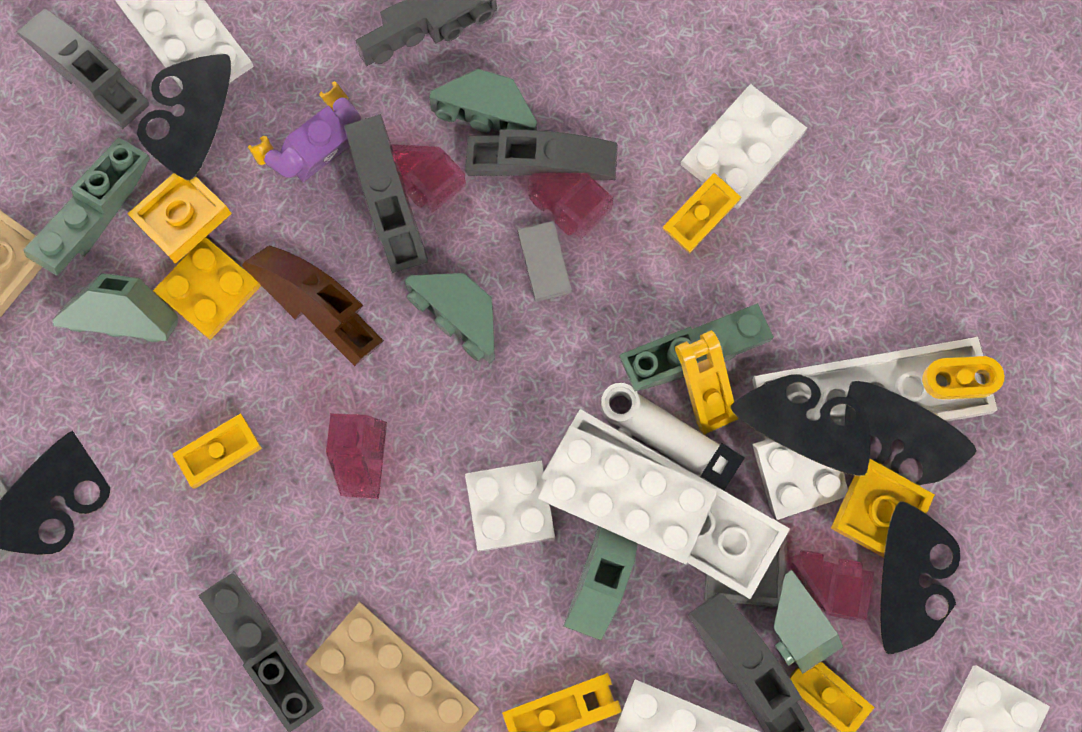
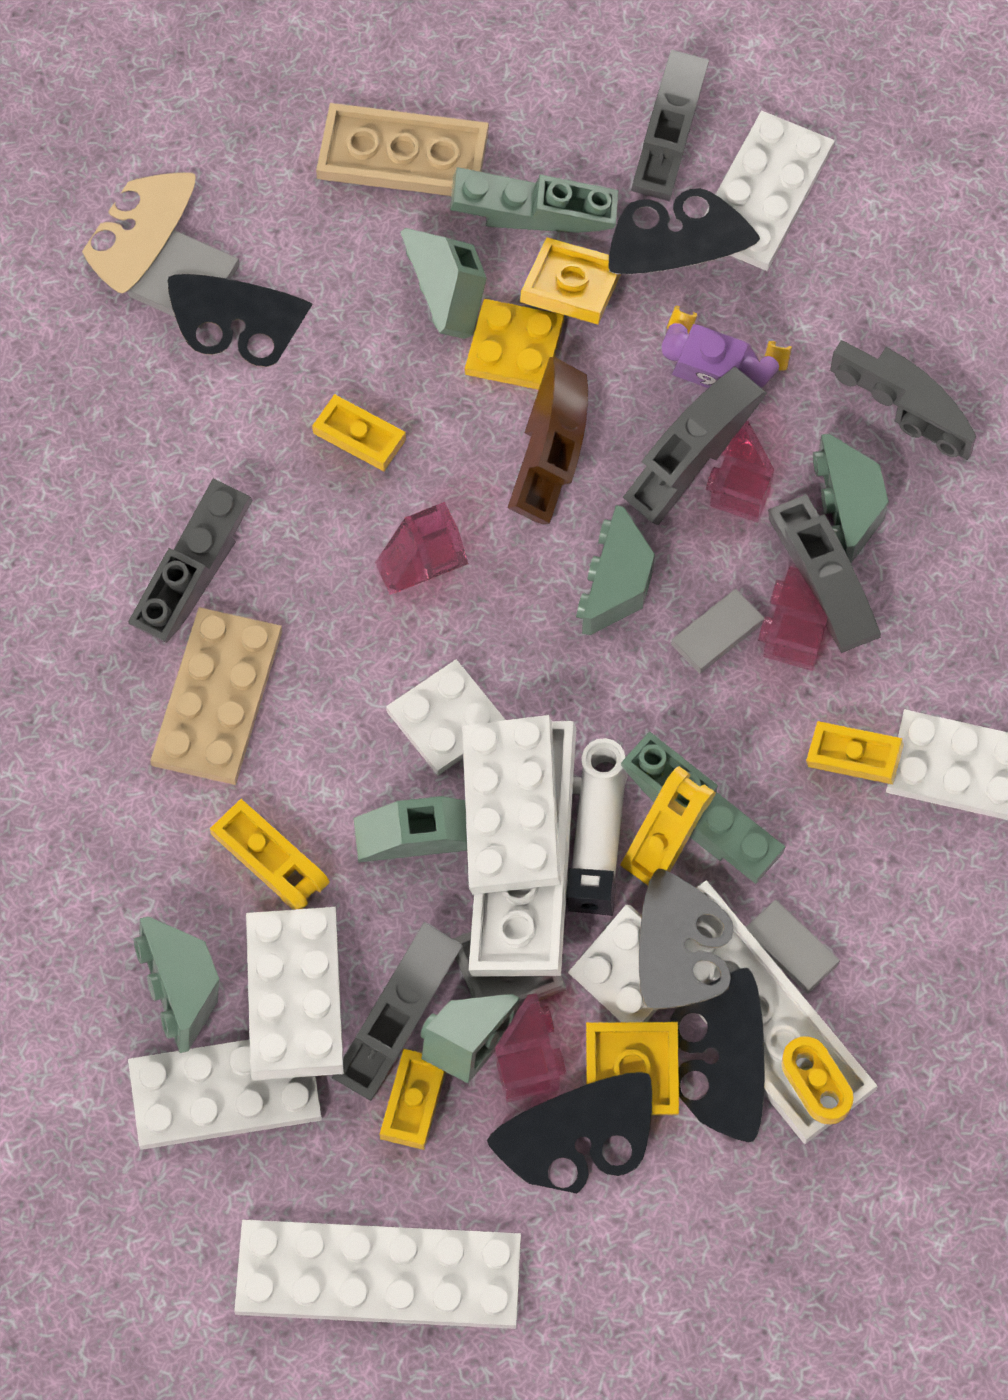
camera: 65 degrees right, 10 degrees down
(832, 341) = (792, 946): none -> light grey tile

